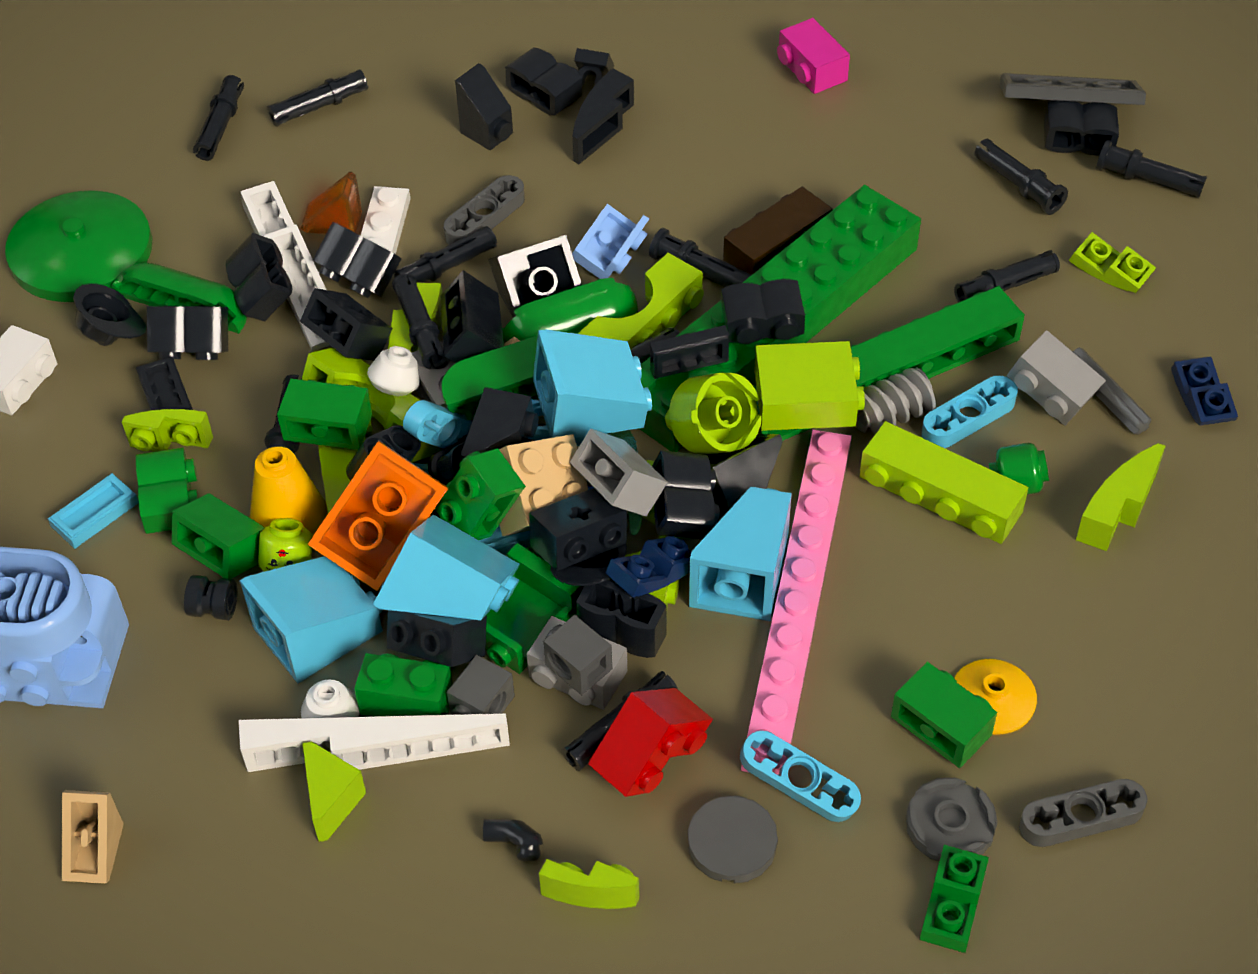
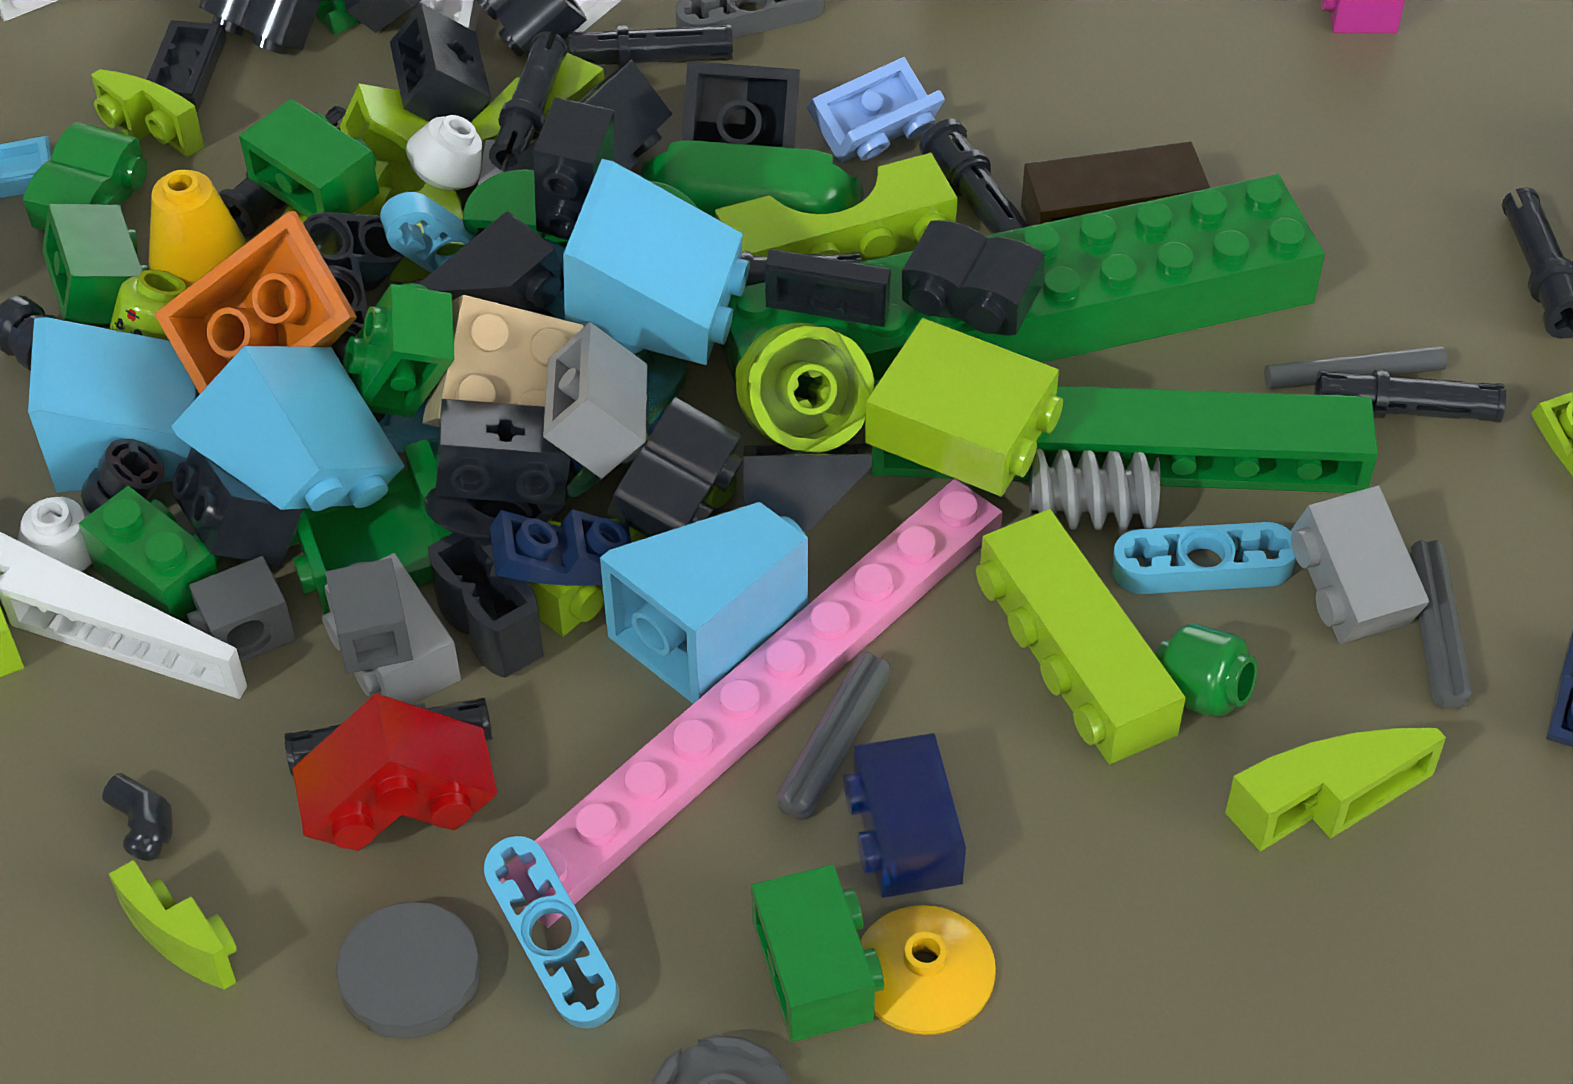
camera: 30 degrees right, 0 degrees up
(347, 655) = (123, 465): none -> black wheel
(510, 346) = (566, 162): none -> black brick
(856, 598) = (833, 736): none -> dark grey axle
(931, 620) = (907, 816): none -> clear blue brick
(969, 272) = (1394, 362): none -> dark grey bar

